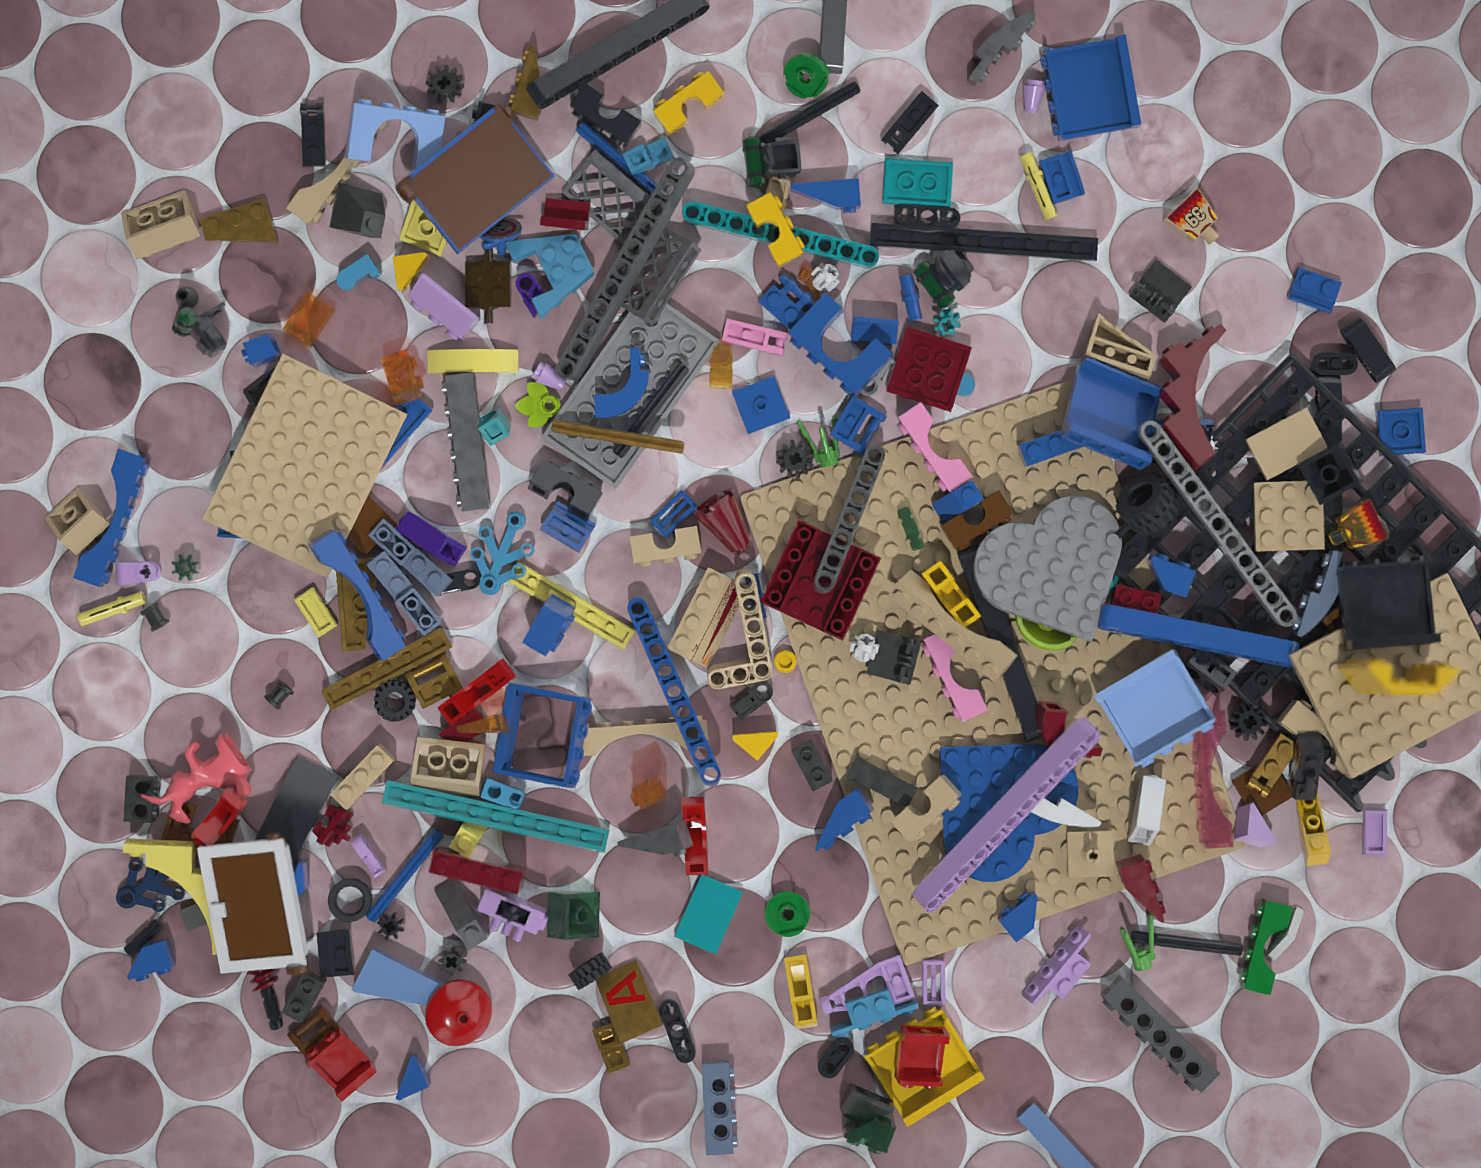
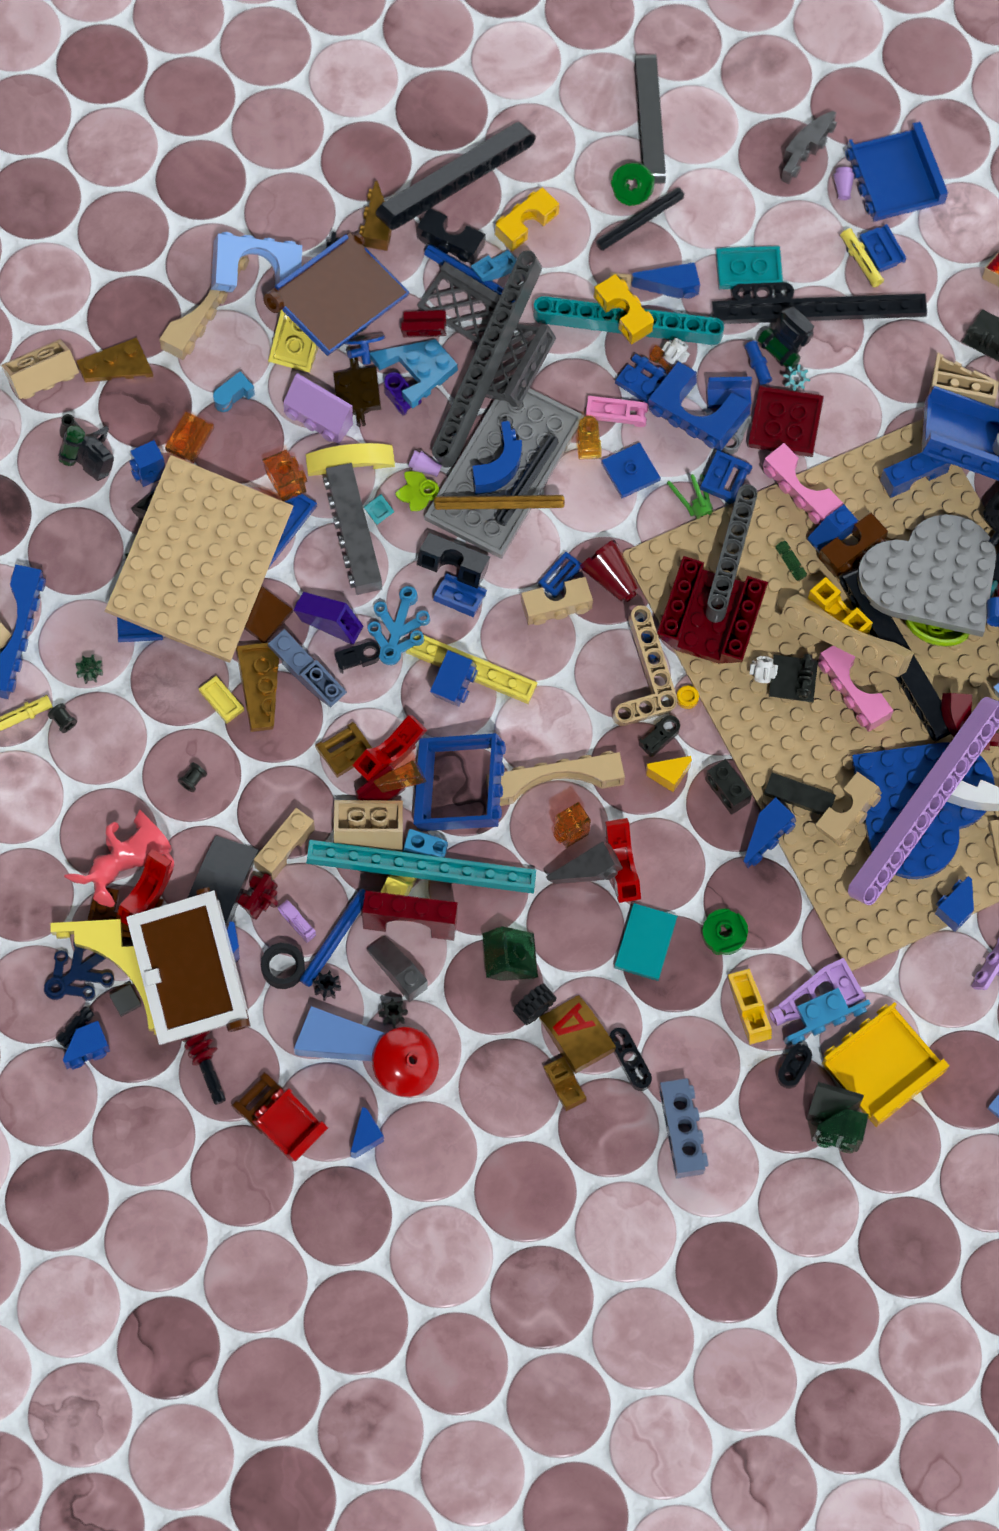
camera: 10 degrees left, 20 degrees down
(133, 798) = (58, 890): pearl dark grey brick -> none
(134, 572) = (38, 678): lavender piece -> none
(304, 996) = (245, 1063): pearl dark grey brick -> none
(313, 135) = (178, 282): black plate -> none
(335, 953) = (273, 1019): black plate -> none
(358, 211) = (227, 338): pearl dark grey slope -> none
(381, 633) = (236, 631): blue arch -> none
(381, 705) = (308, 759): black tyre -> none
(383, 671) = (296, 742): pearl gold plate -> none
(407, 267) = (279, 382): yellow slope -> none
(410, 557) = (310, 637): sand blue slope -> none
(450, 89) = (297, 224): pearl dark grey gear -> none
(514, 912) = (449, 953): lavender piece -> none
(669, 681) = (588, 735): blue beam -> none
(706, 619) = (605, 663): tan slope -> none
(770, 159) = (610, 256): black piece -> none
(790, 452) = (667, 504): pearl dark grey gear -> none
(910, 122) = (734, 216): black plate -> none
(920, 1056) = (880, 1049): red panel -> none
(933, 962) = (869, 965): lavender tile -> none
(967, 386) = (824, 434): dark azure tile -> none

